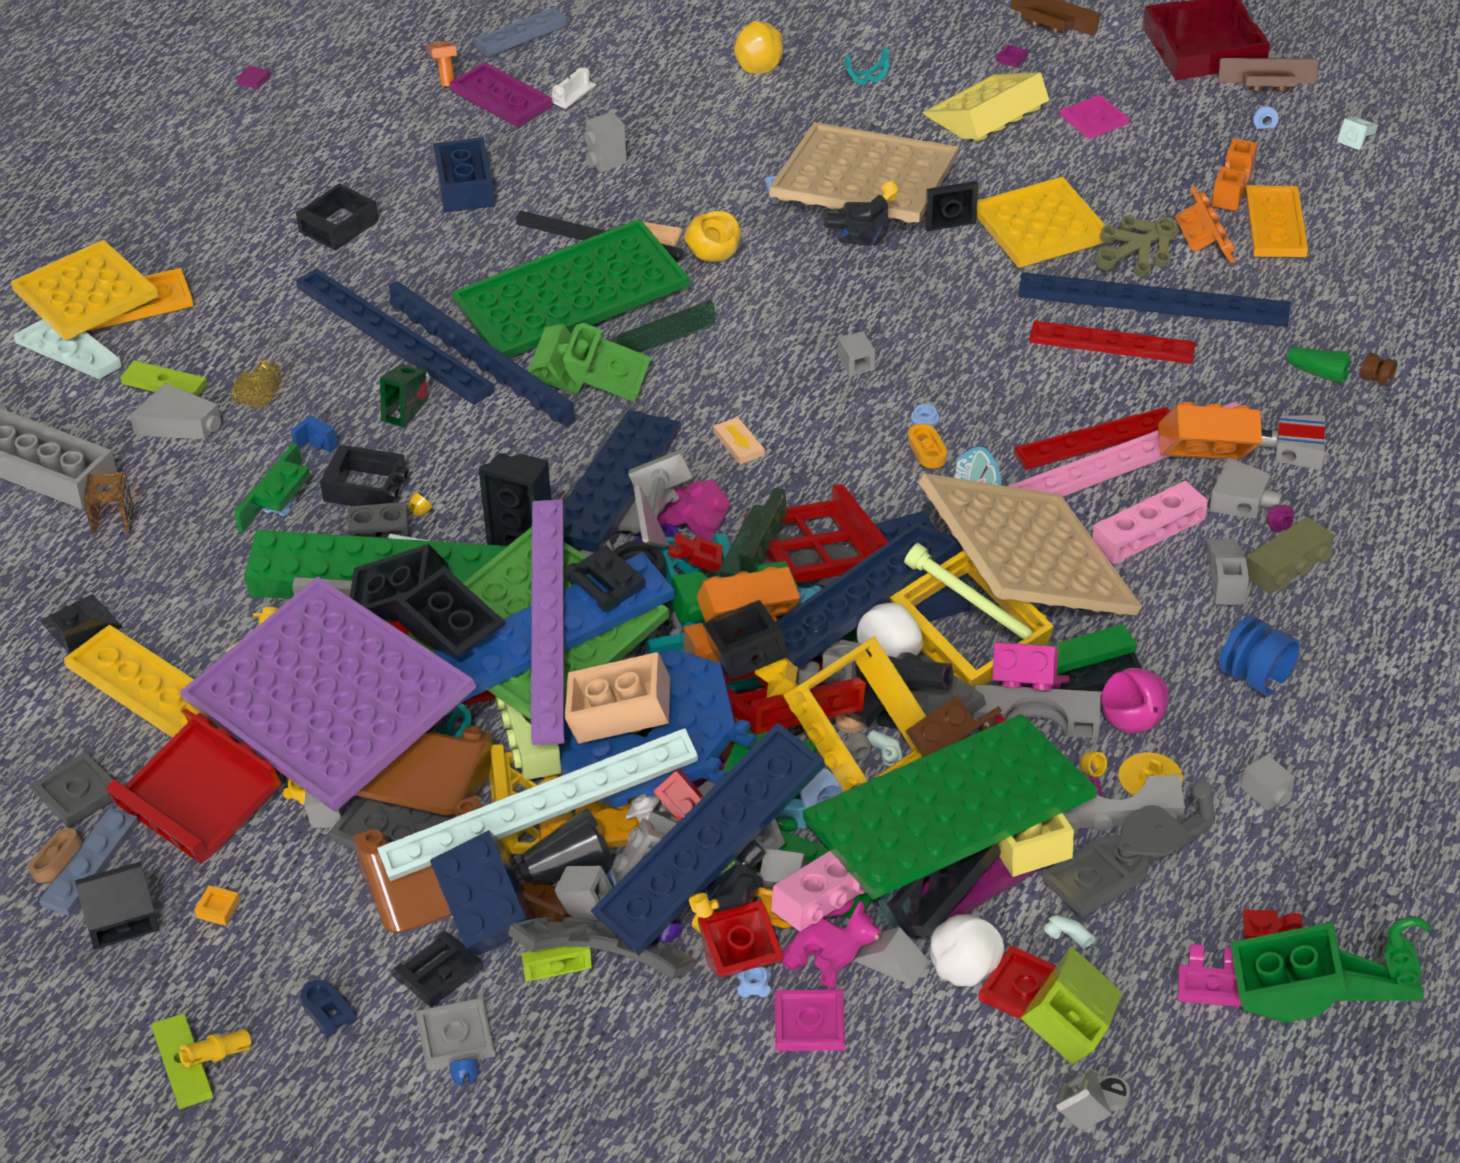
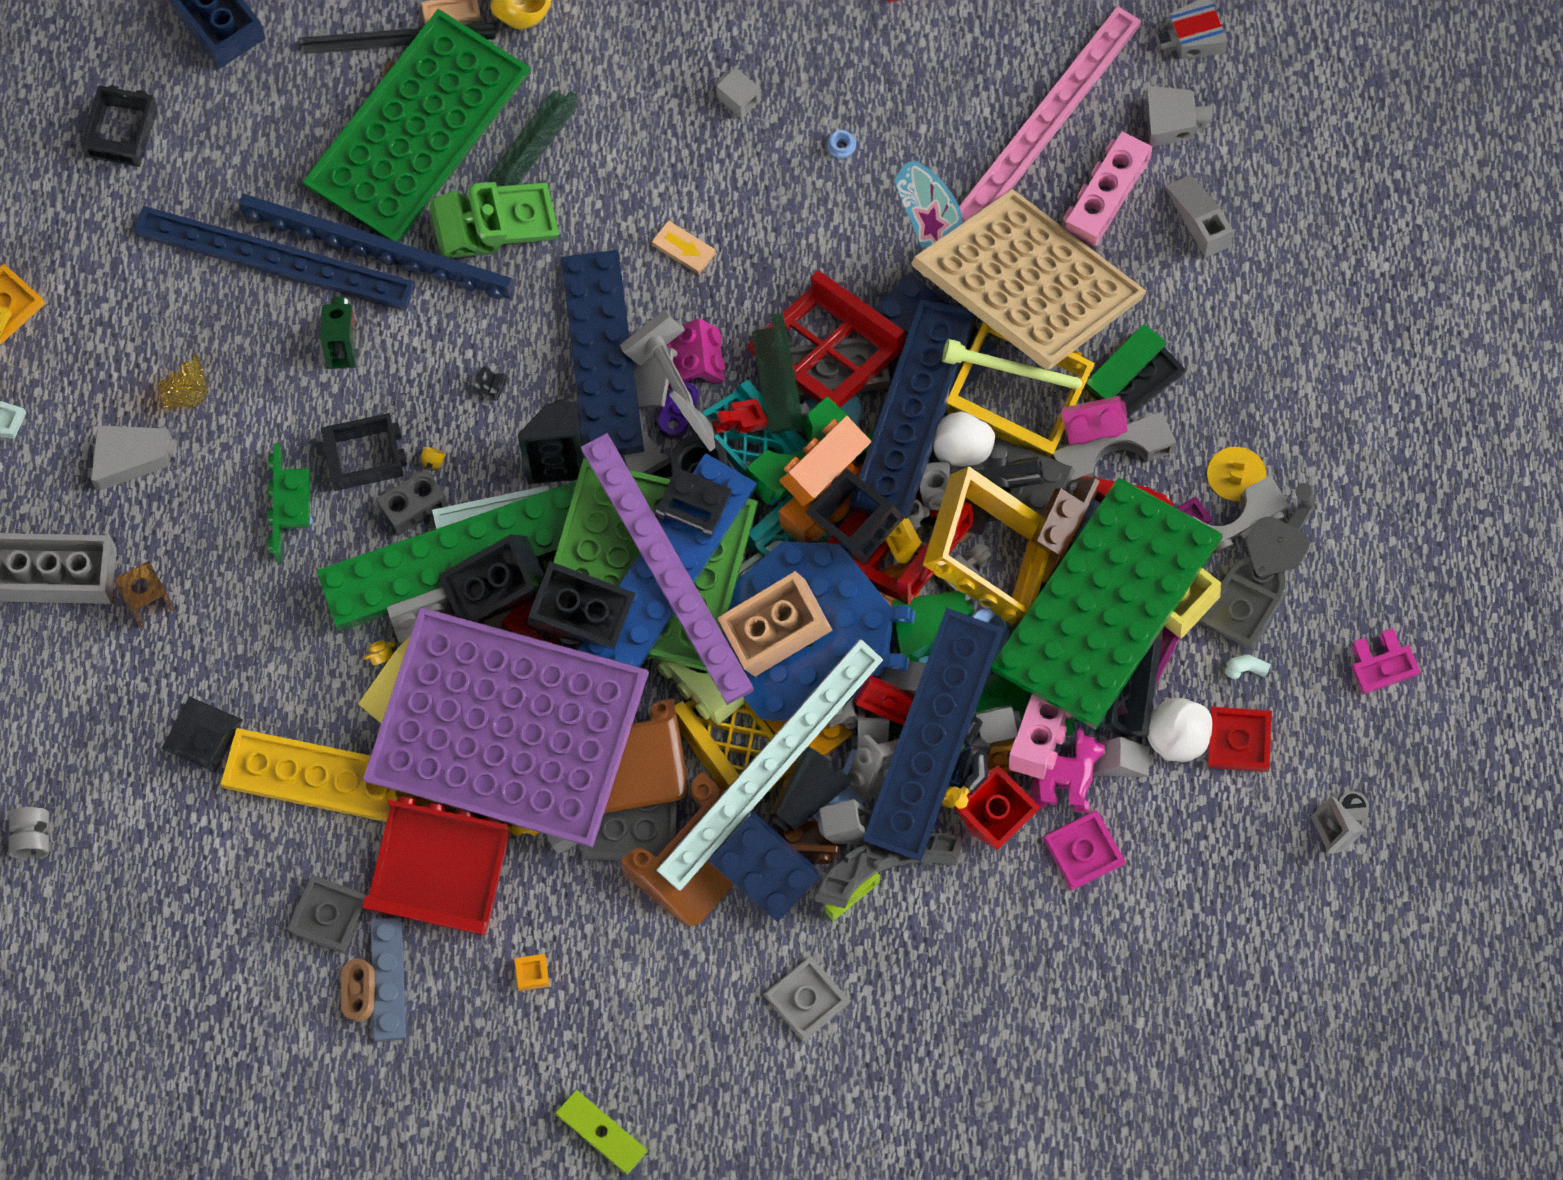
camera: 25 degrees left, 25 degrees up
(117, 905) = (455, 1019): black slope -> none
(153, 377) = (66, 416): lime tile -> none
(215, 1048) = (625, 1110): yellow pin -> none
(316, 432) = (284, 417): blue bracket -> none
(321, 997) = (676, 1021): dark blue plate -> none
(442, 974) = (764, 949): black plate -> none
(462, 1067) = (835, 1029): blue hinge -> none
(761, 988) = (1029, 838): light blue plate -> none
(889, 747) = (1006, 544): light aqua arm -> none
(931, 450) = (864, 181): light orange plate -> none
(1073, 1007) = (1293, 745): lime slope -> none
(1089, 439) = (1009, 101): red tile -> none
(1095, 759) = (1182, 483): yellow hinge -> none
(1134, 700) = (1193, 406): dark pink piece -> none
(1210, 431) = (1121, 66): orange brick -> none
(1258, 653) = (1276, 310): blue wheel -> none
(1266, 922) = (1399, 590): red plate -> none
(1268, 782) = (1340, 442): light grey brick -> none
(1280, 517) = (1219, 133): magenta plate -> none
(1289, 555) = (1248, 176): olive brick -> none
(1305, 971) = (1461, 630): green slope -> none

